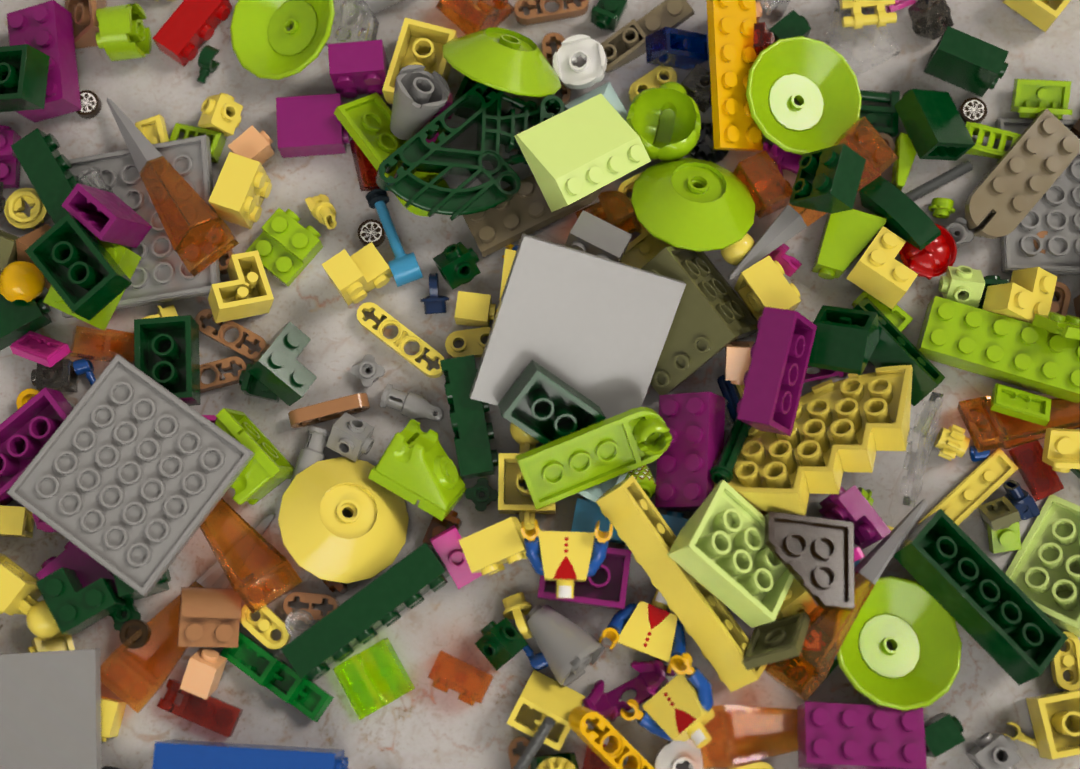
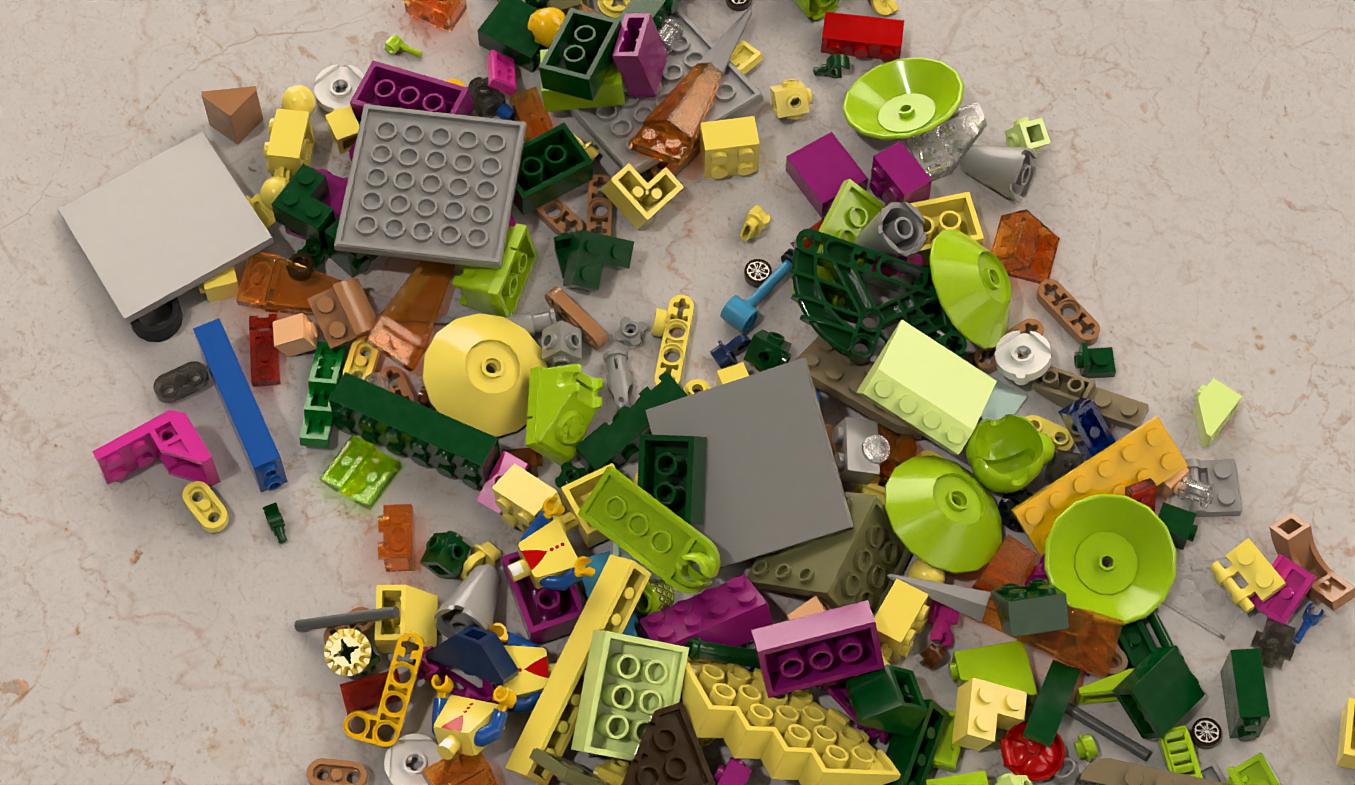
camera: 60 degrees right, 15 degrees down
(217, 138) = (766, 111): lime slope -> none
(253, 145) = (776, 139): light nougat brick -> none
(286, 245) = (704, 211): lime plate -> none
(357, 273) = (708, 276): light yellow brick -> none
(374, 341) = (659, 322): none -> light yellow tile
(537, 661) = (445, 591): blue hand -> none
(612, 224) = (876, 449): none -> clear plate
(620, 667) = (476, 654): none -> dark blue slope
(804, 281) = (932, 655): none -> reddish brown plate

